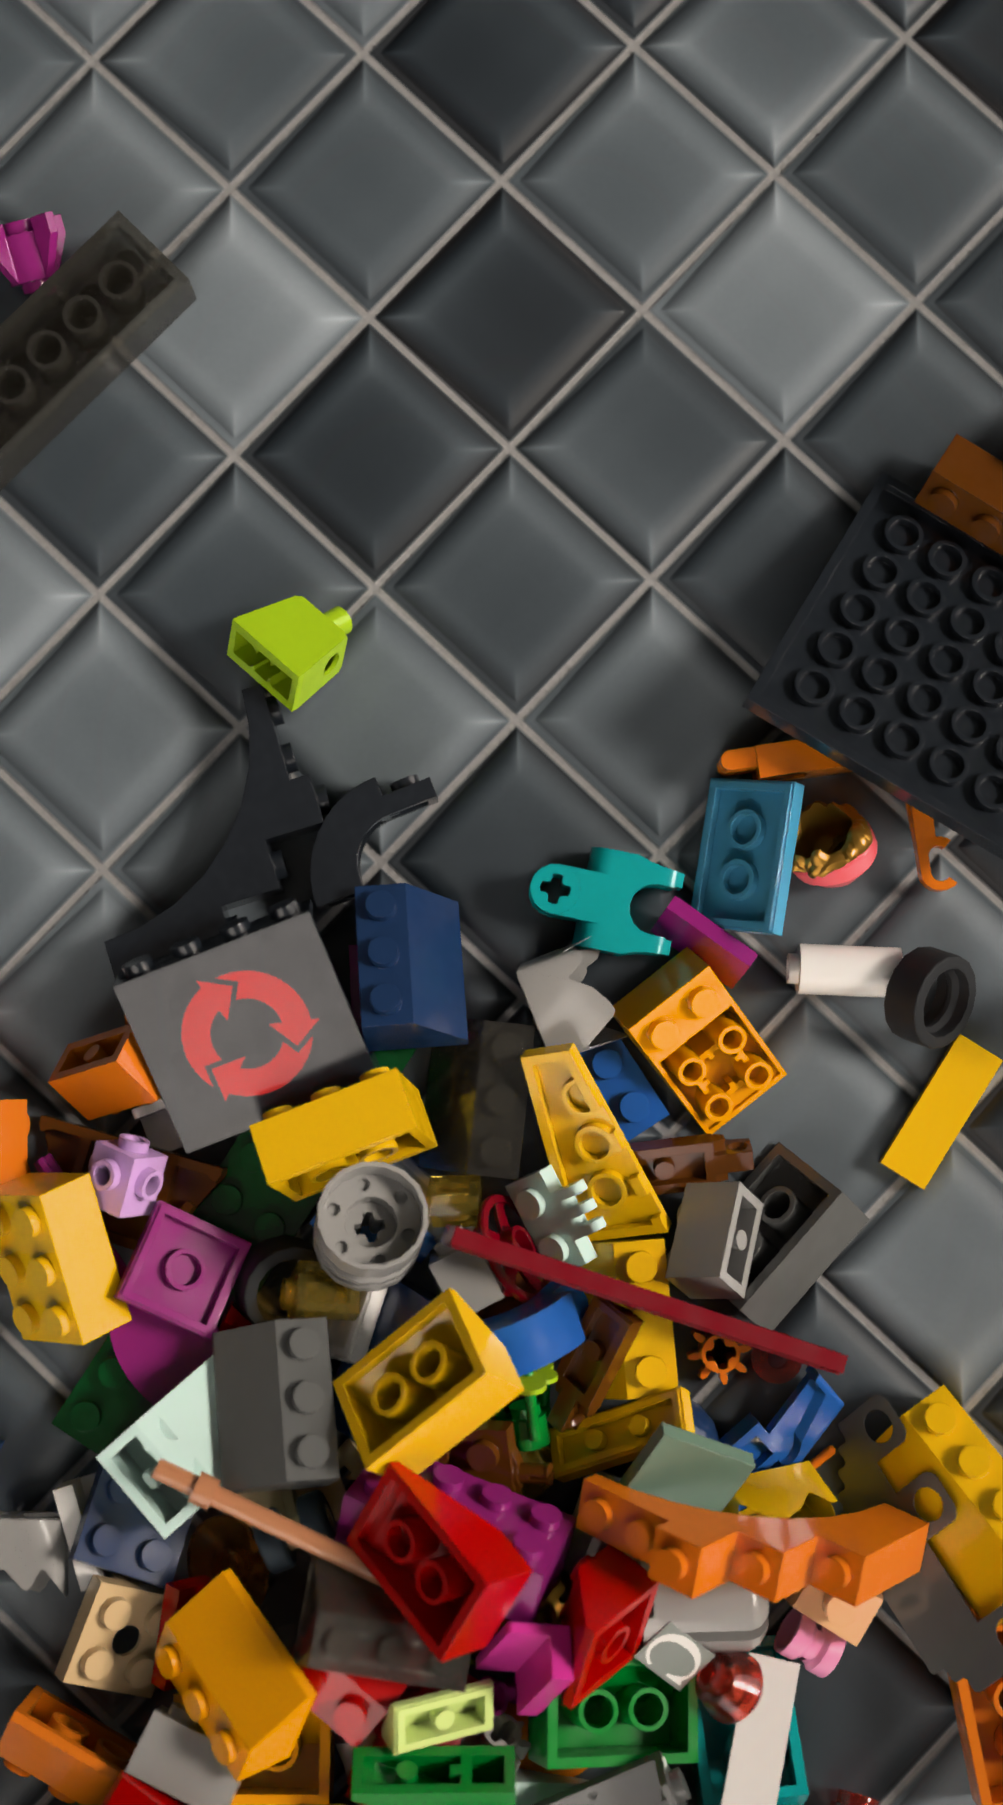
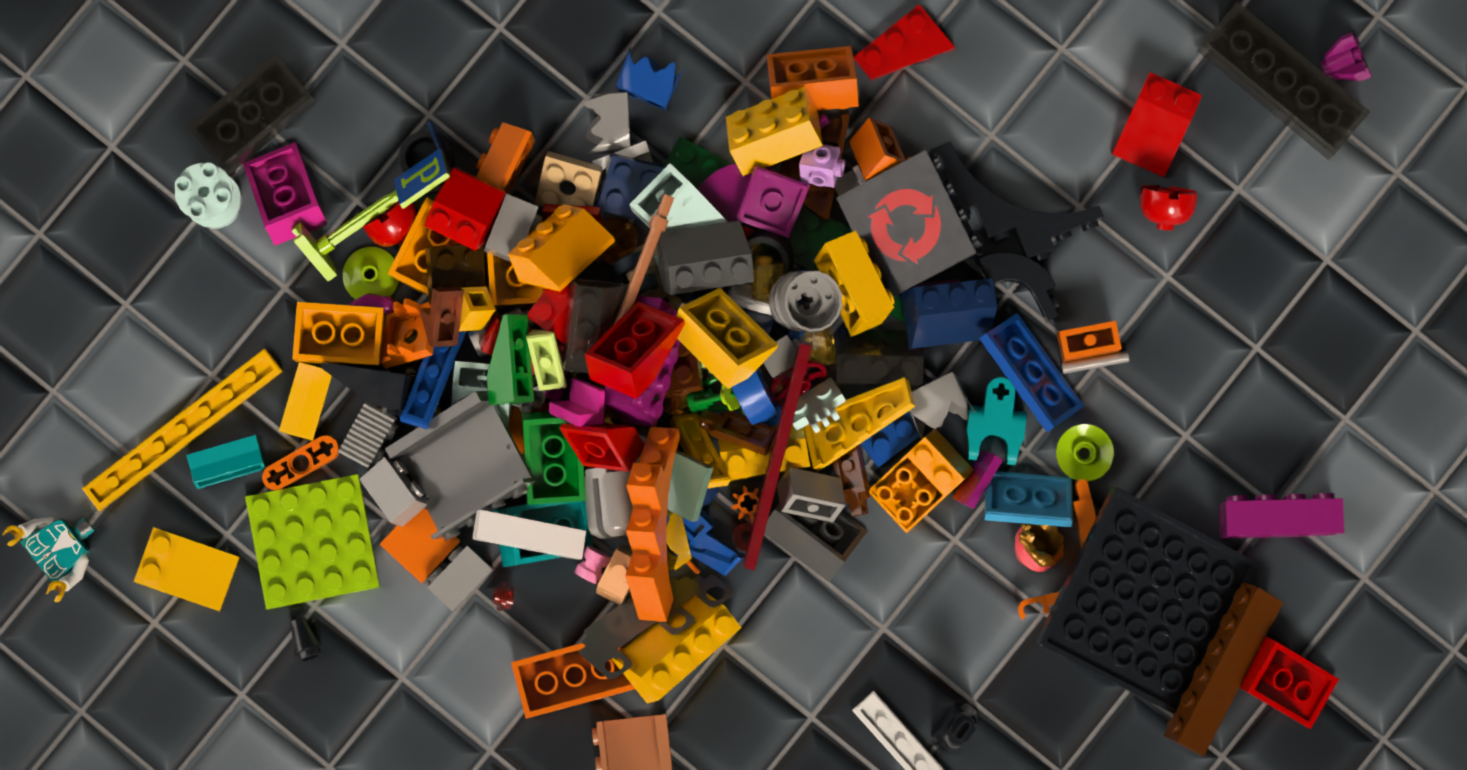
camera: 85 degrees right, 0 degrees up
(107, 580) = (1156, 124): none -> red slope
(251, 570) = (1167, 205): none -> red cylinder
(290, 647) = (1126, 231): lime torso -> none
(478, 728) = (1089, 341): none -> orange brick
(513, 723) = (1095, 362): none -> light grey piece
(525, 832) = (1031, 372): none -> blue plate
(674, 1656) = (585, 486): light grey sticker -> none
(675, 727) = (1095, 441): none -> lime dish
(730, 1686) = (570, 518): clear red cone -> none
(812, 423) = (1281, 518): none -> magenta brick
(842, 969) = (968, 560): white brick -> none
(908, 991) = (951, 622): black tyre -> none
(940, 1111) = (892, 621): yellow tile -> none

